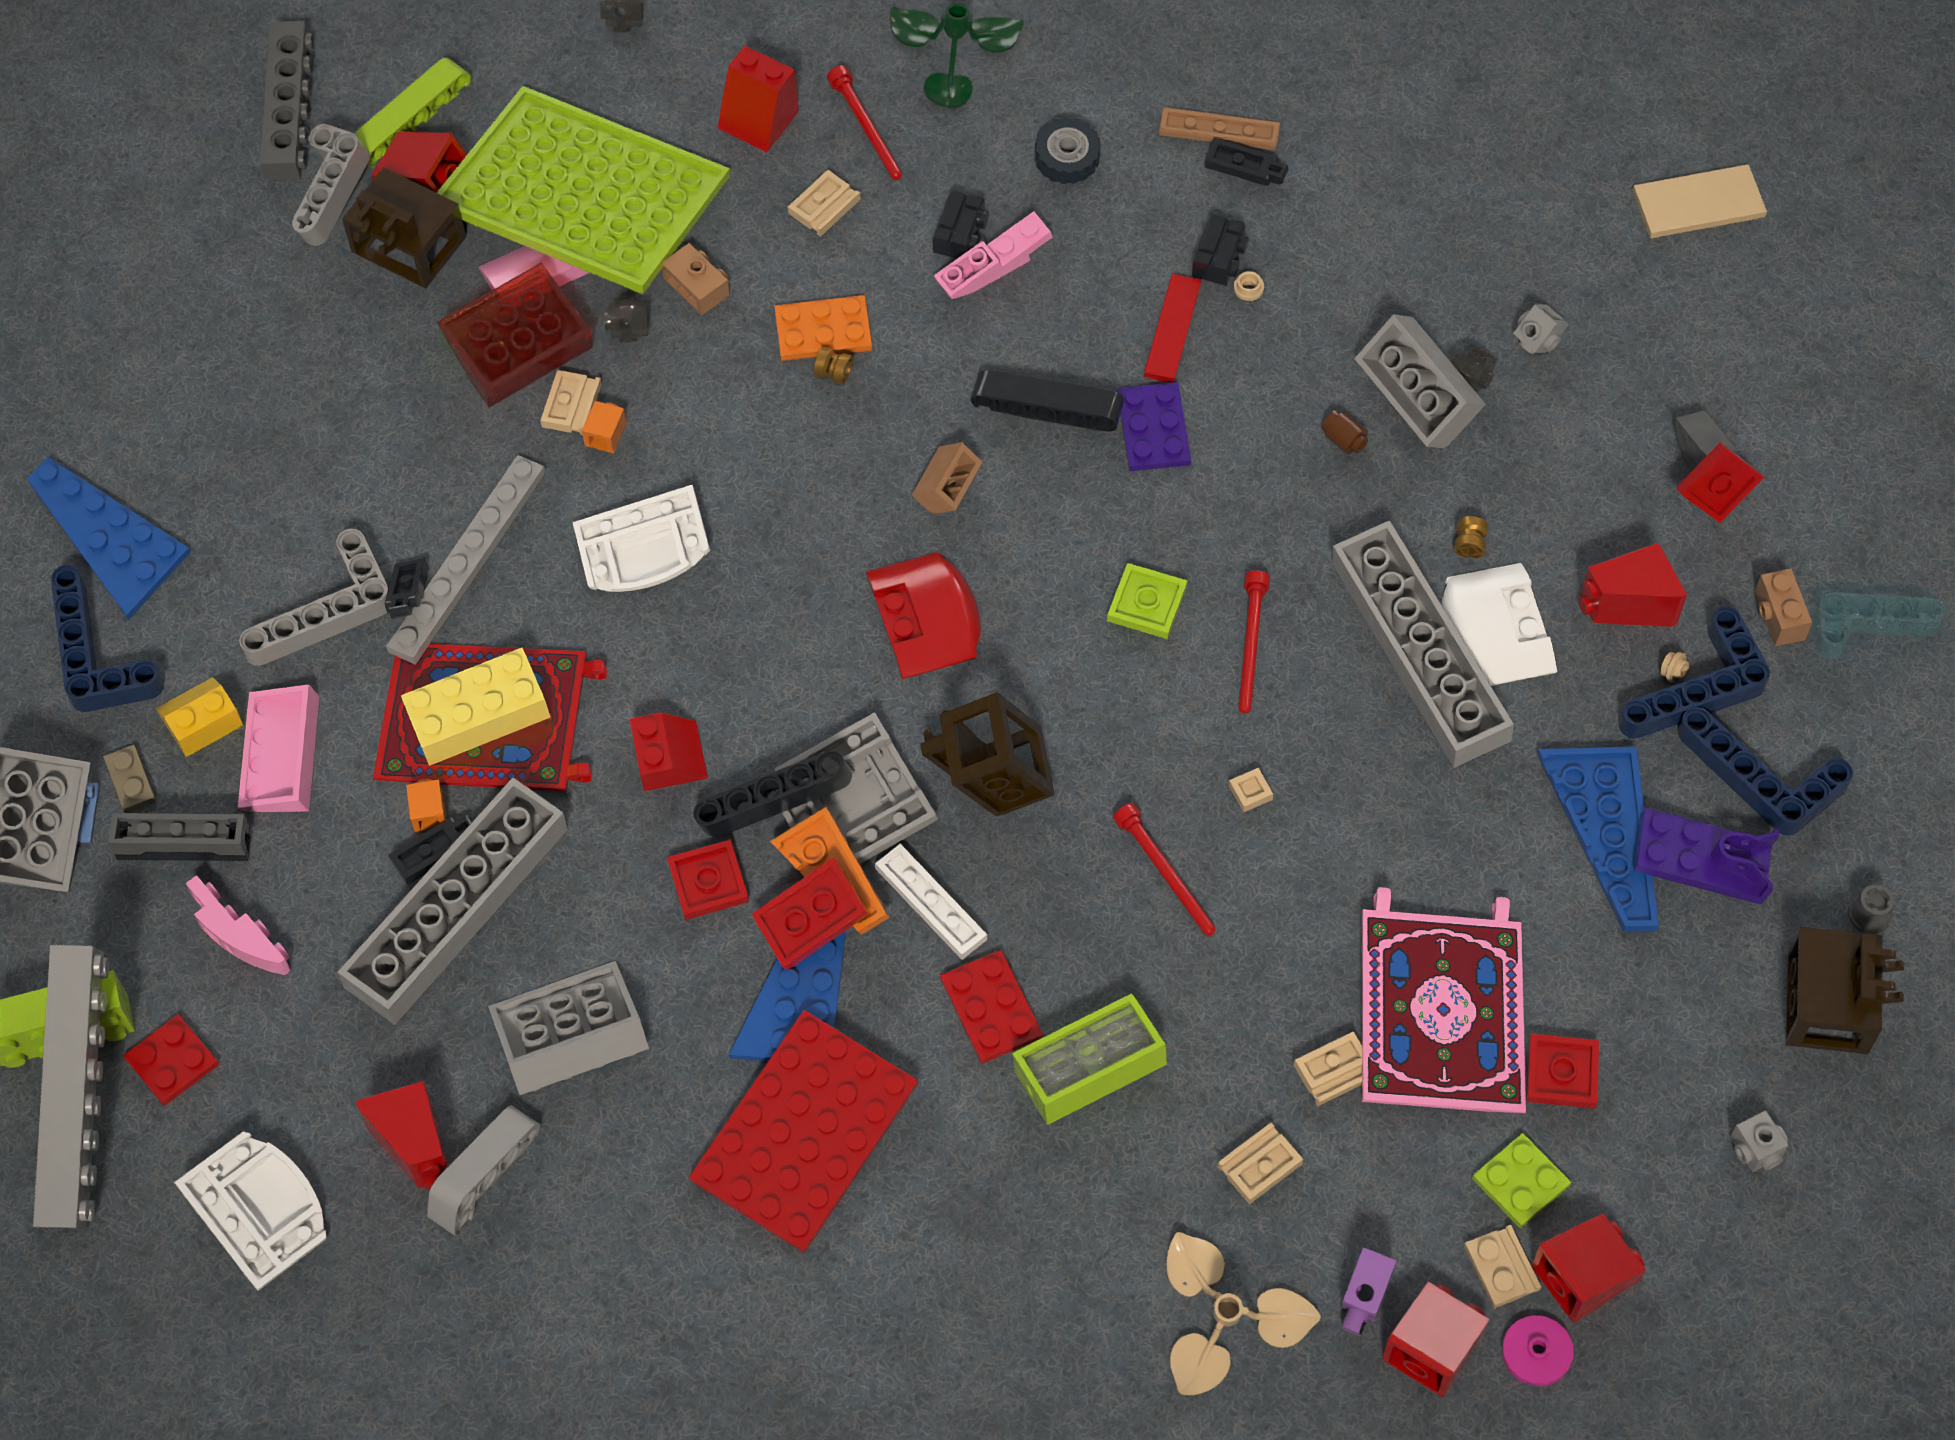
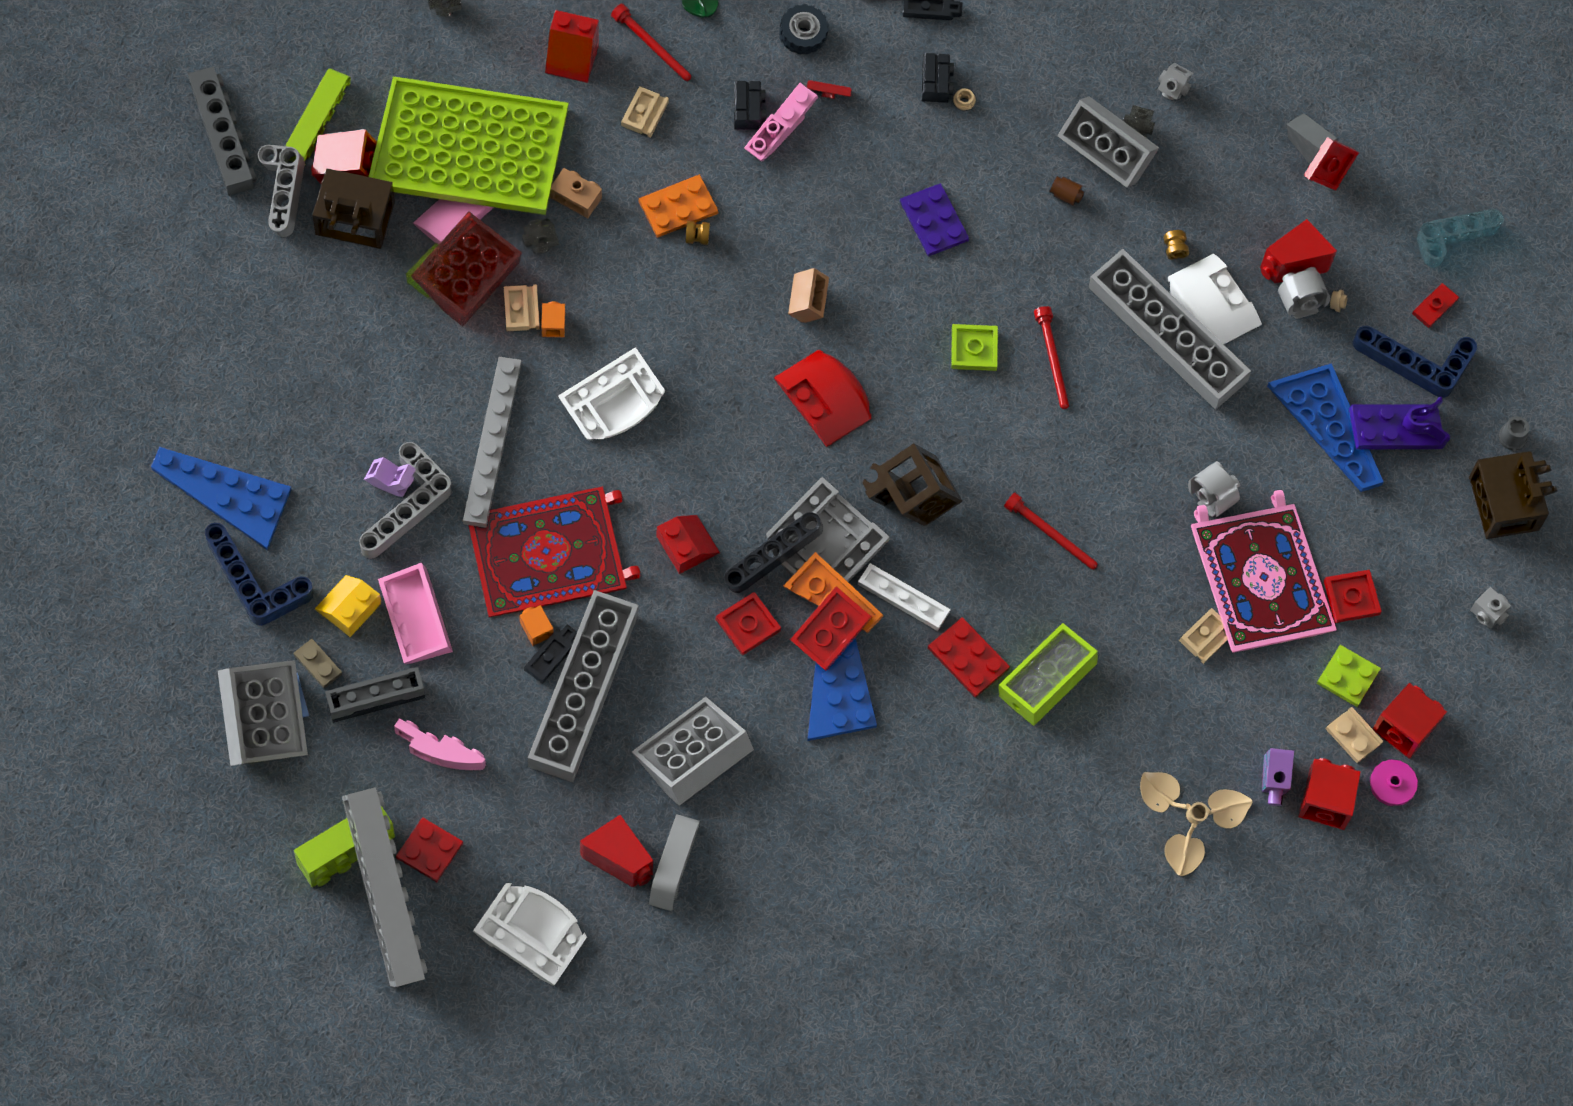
camera: 25 degrees left, 5 degrees up
(317, 568) = (390, 477): none -> lavender brick
(406, 587) = (461, 474): black hinge -> none
(475, 706) = (545, 546): light yellow brick -> none
(803, 1131) = (877, 775): red plate -> none
(1048, 400) = (856, 220): black beam -> none
(1071, 231) = (829, 90): none -> red plate
(1172, 328) = (922, 143): red tile -> none
(1250, 790) = (1088, 461): tan plate -> none
(1260, 1163) = (1180, 712): tan plate -> none
(1411, 871) = (1215, 489): none -> light grey brick
(1626, 642) = (1303, 293): none -> light grey brick
(1705, 687) = (1362, 311): dark blue beam -> none
(1783, 607) = (1396, 240): medium nougat brick -> none
(1813, 708) = (1435, 305): none -> red plate

